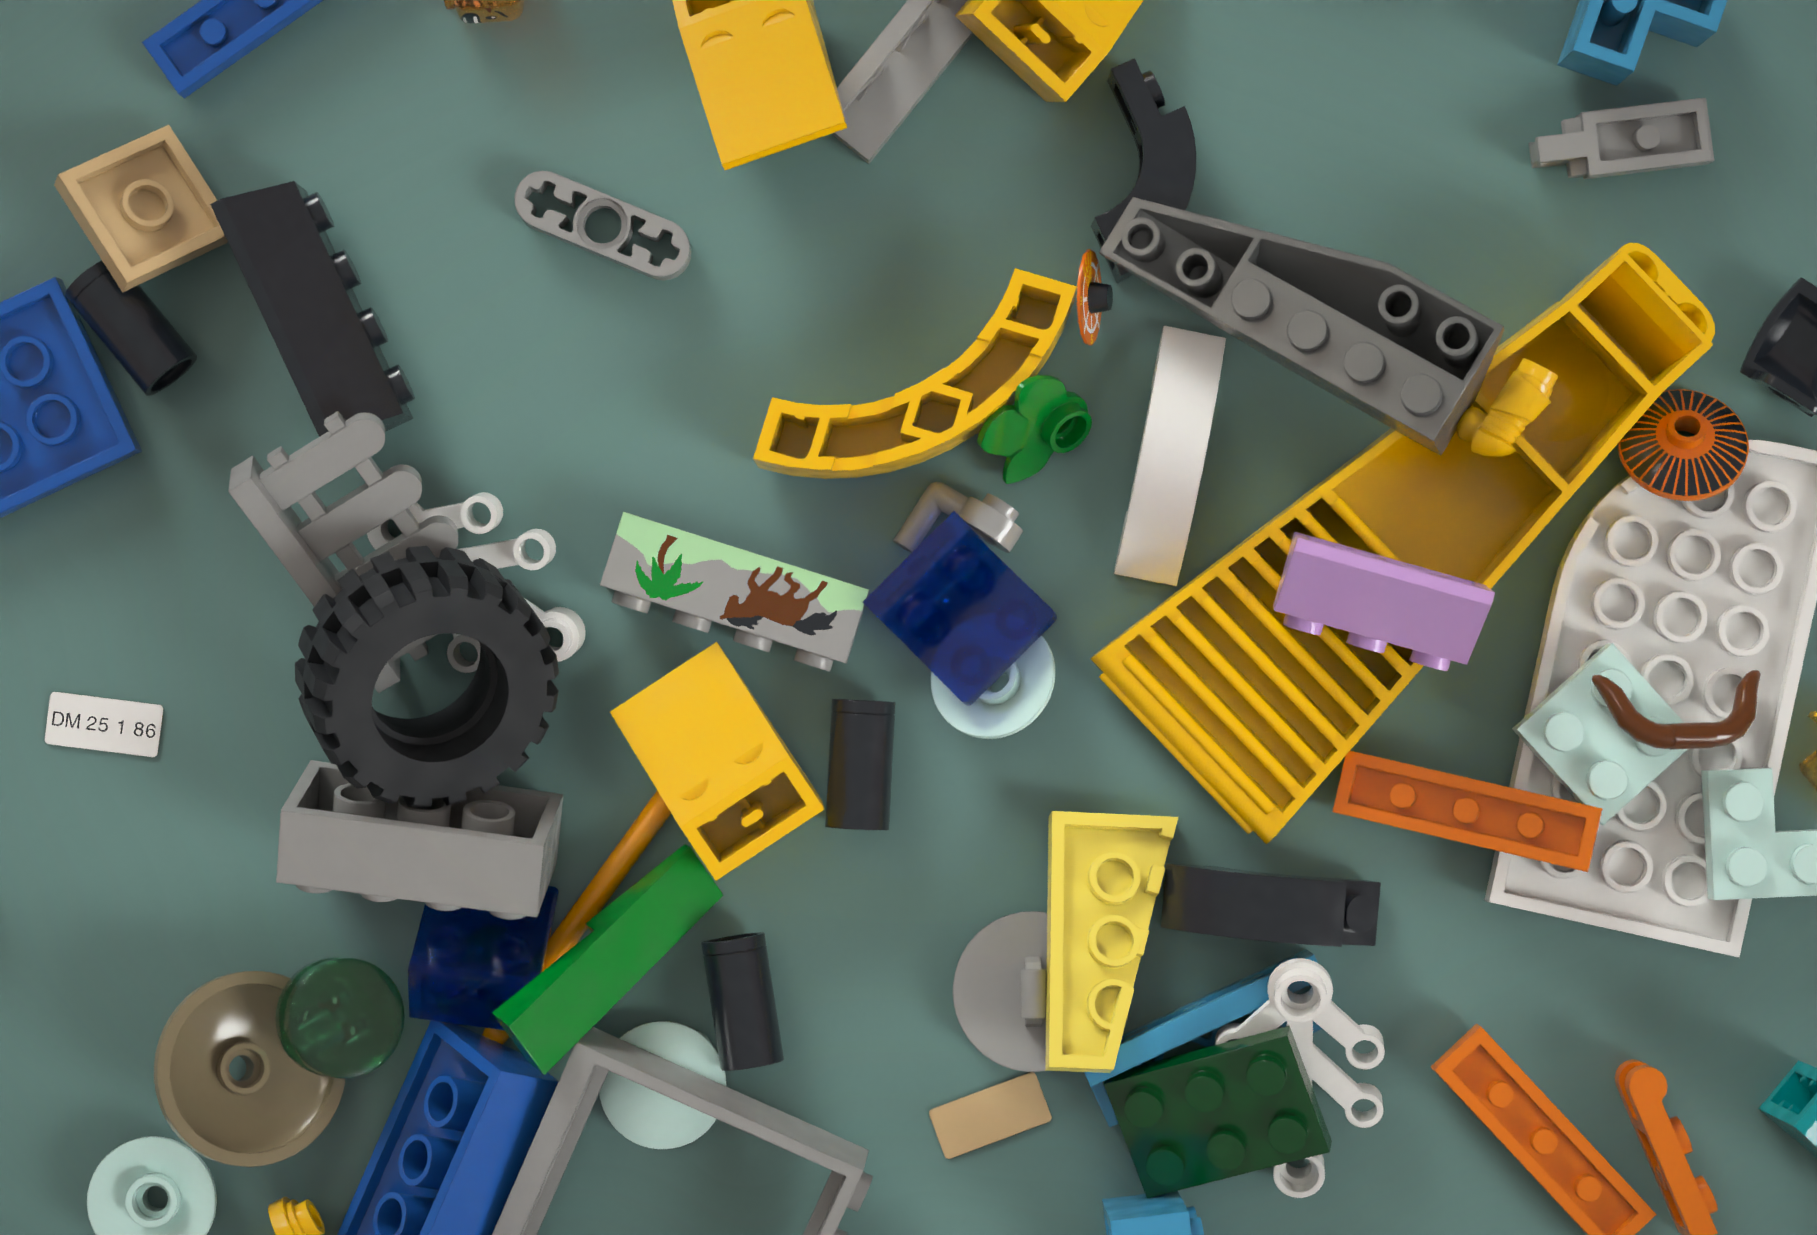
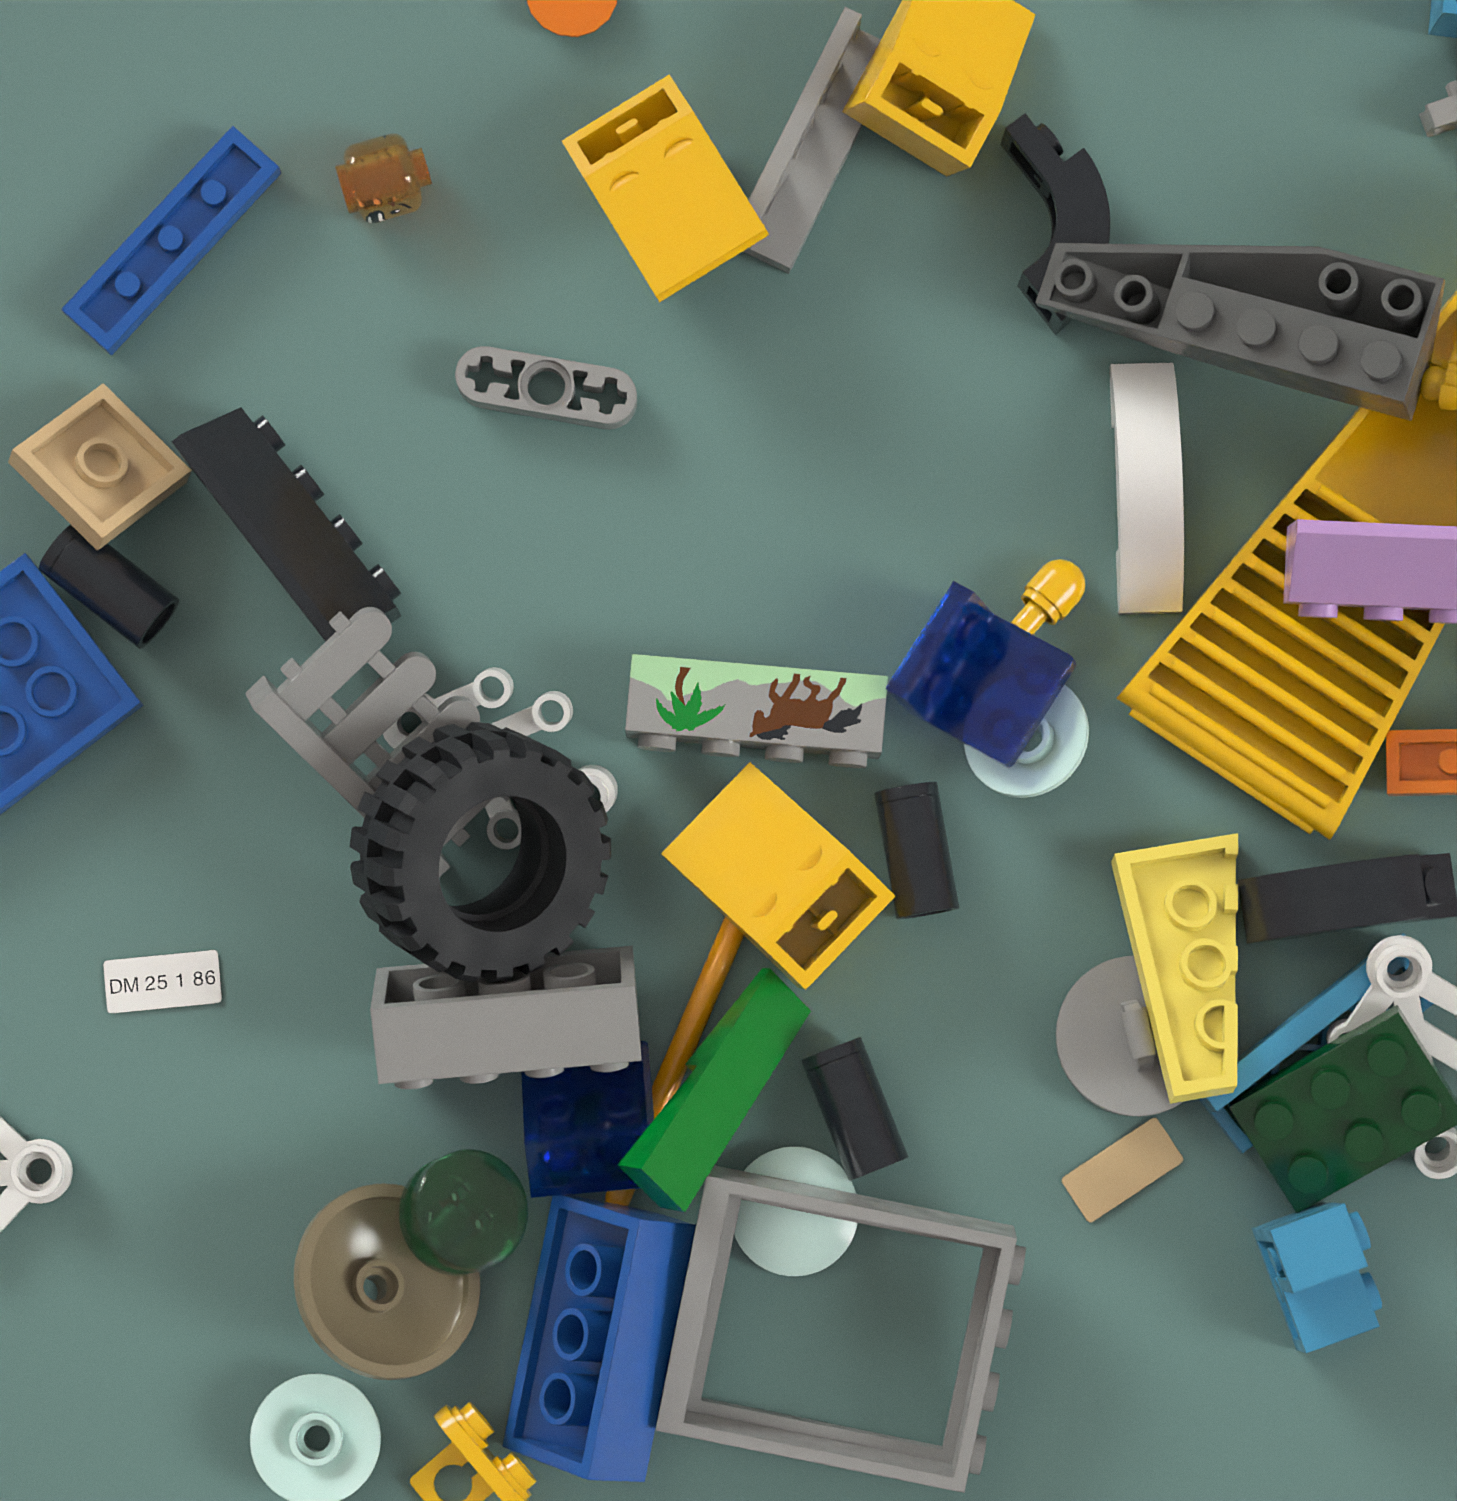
camera: 15 degrees left, 5 degrees down
(930, 414) = (907, 497): yellow brick -> none
(989, 518) = (989, 581): light grey plate -> none
(1037, 425) = (1011, 485): green plate -> none
(1049, 542) = (1050, 595): none -> yellow cylinder
(1092, 297) = (1038, 349): piece -> none

